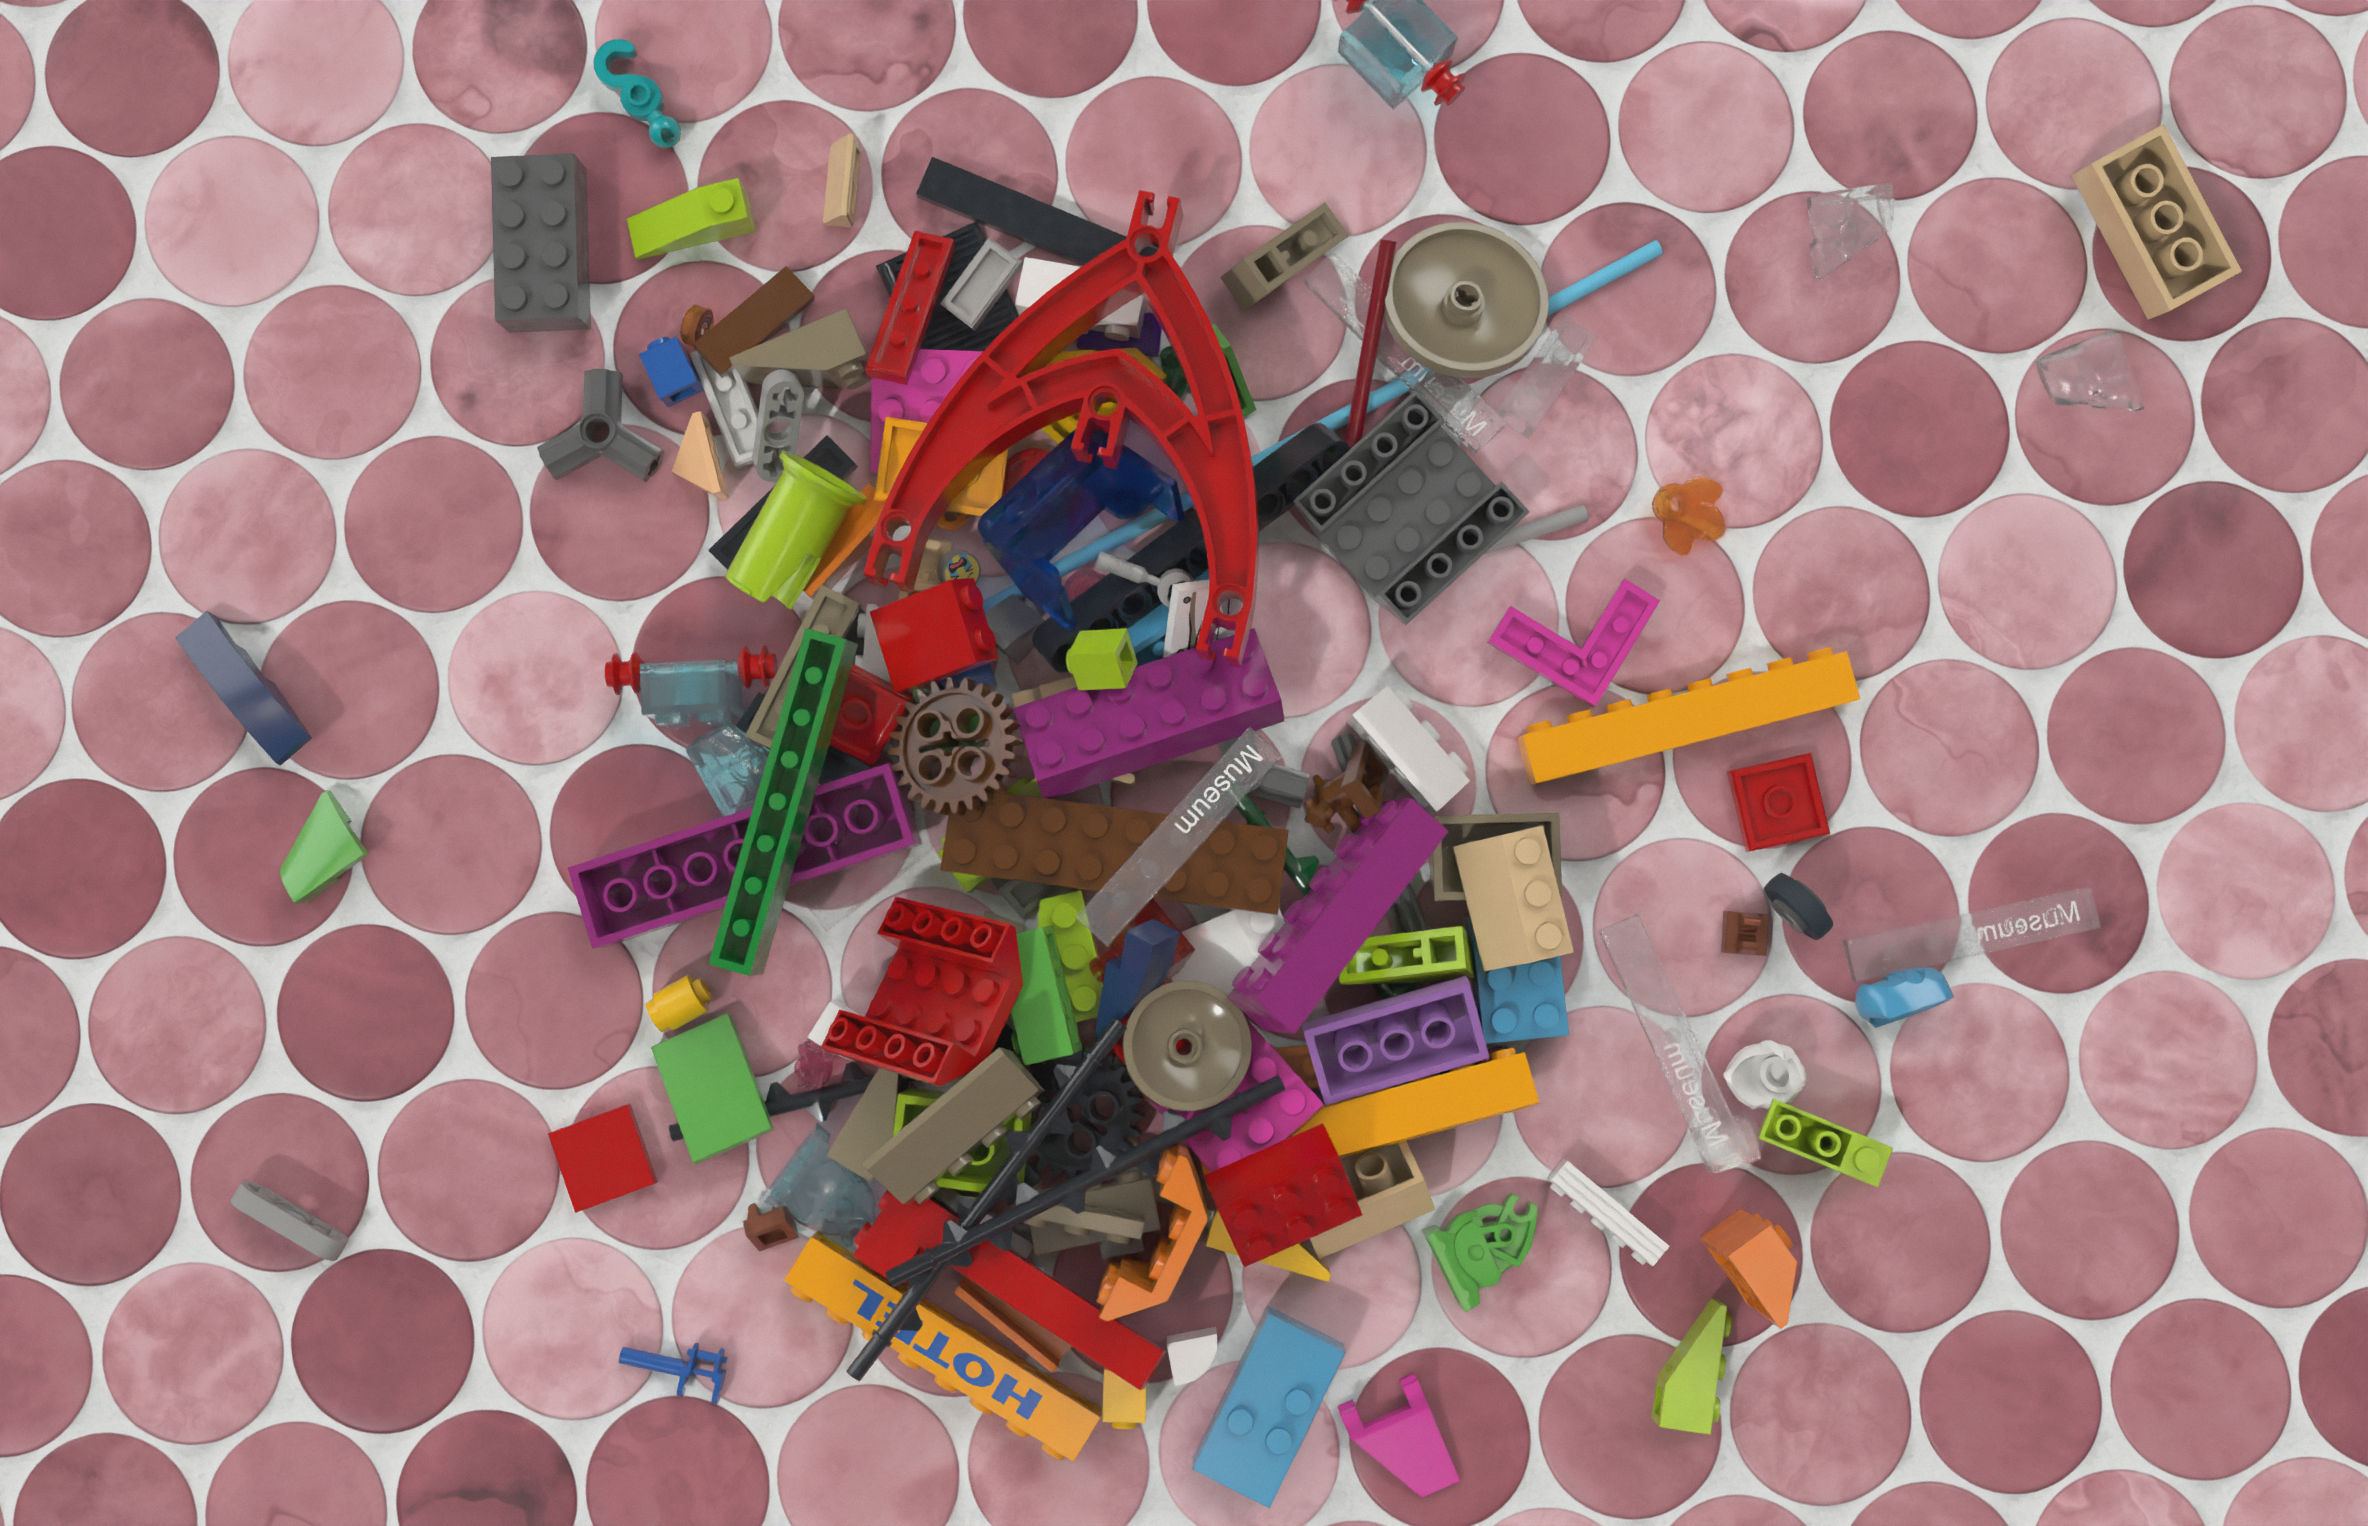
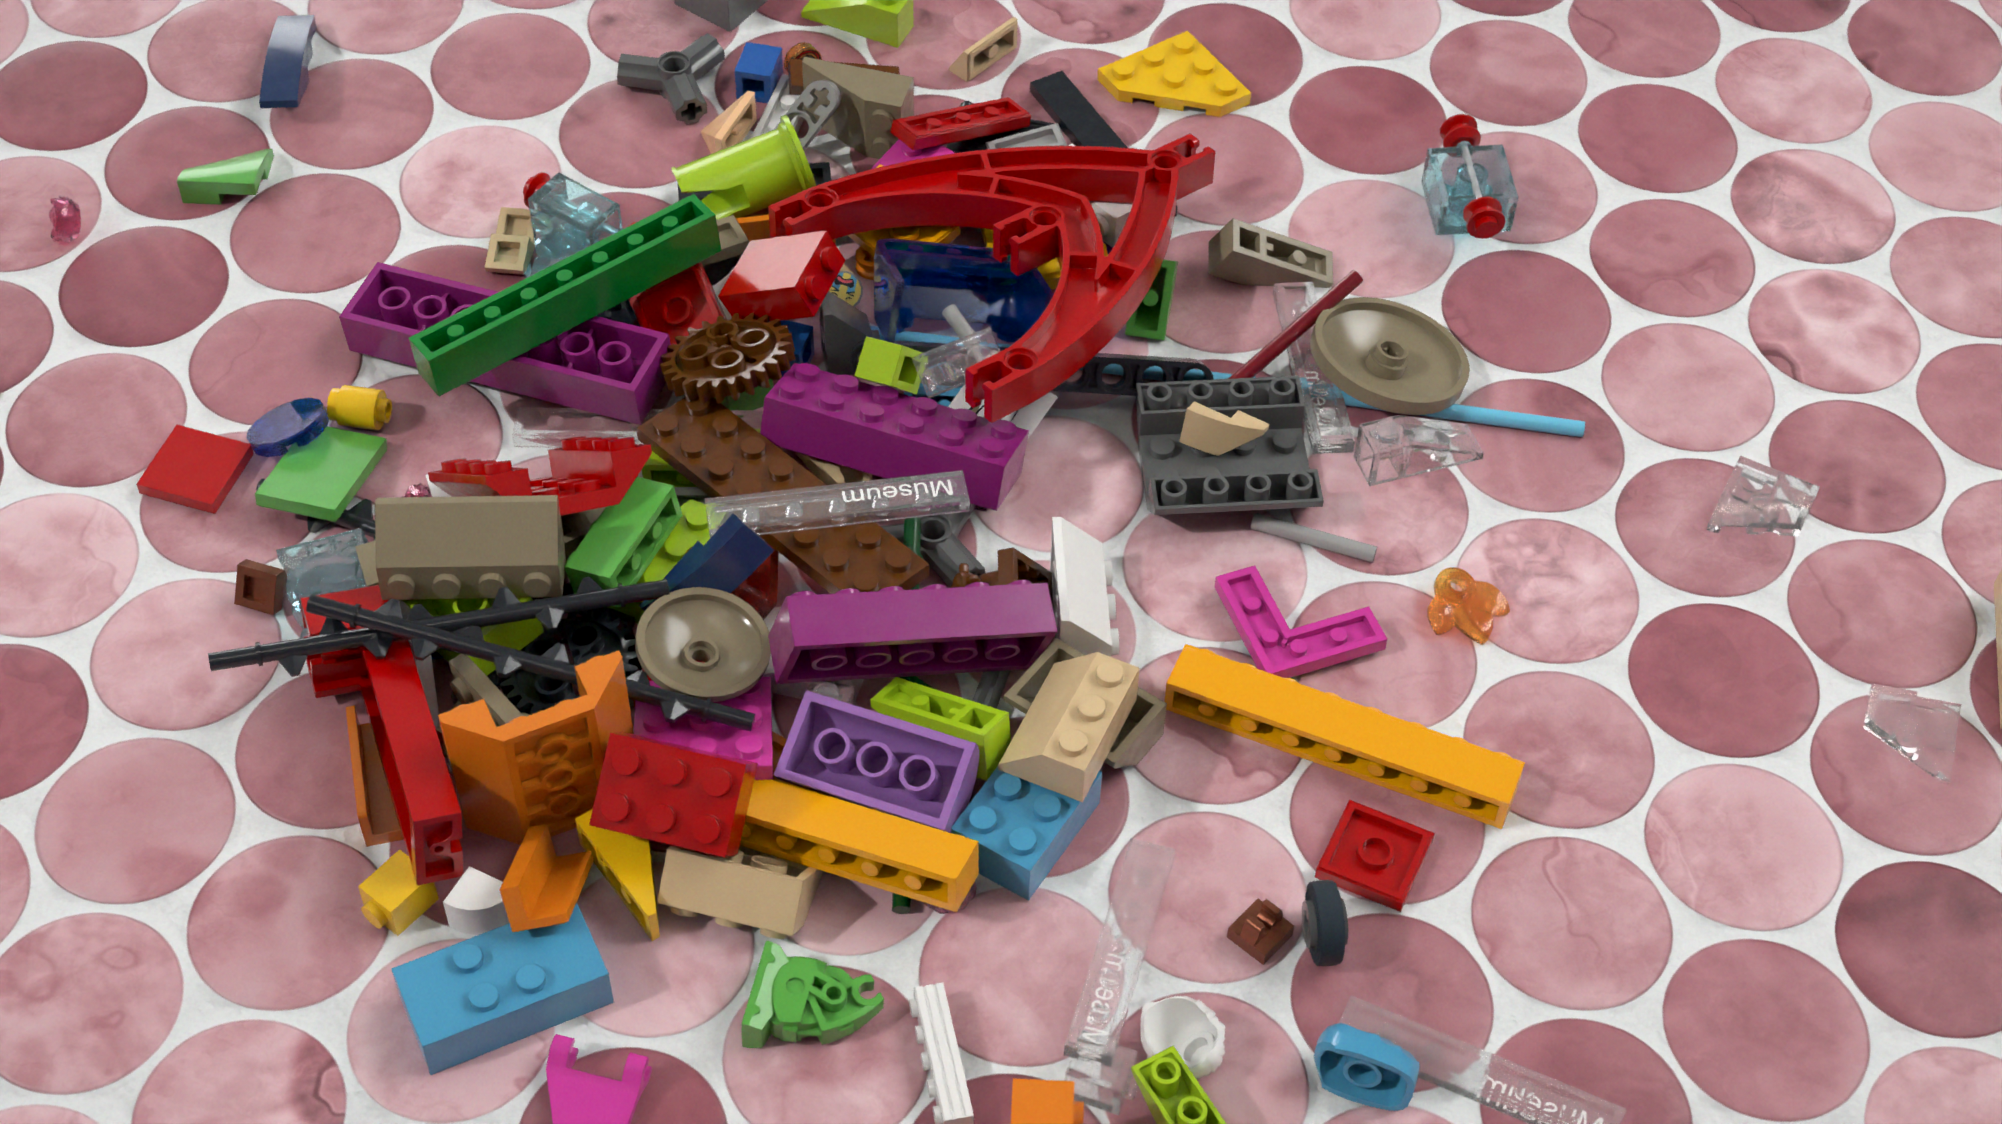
camera: 35 degrees right, 35 degrees down
(237, 1010) = (65, 219): none -> clear pink plate
(635, 734) = (513, 243): none -> tan slope
(643, 1070) = (288, 424): none -> clear blue tile
(679, 1367) = (90, 640): blue piece -> none
(948, 1349) = (297, 770): light orange brick -> none
(1034, 82) = (1176, 76): none -> yellow plate
(1164, 625) = (946, 365): none -> clear plate
(1237, 1317) = (540, 885): none -> orange panel
(1391, 504) = (1216, 432): none -> tan slope

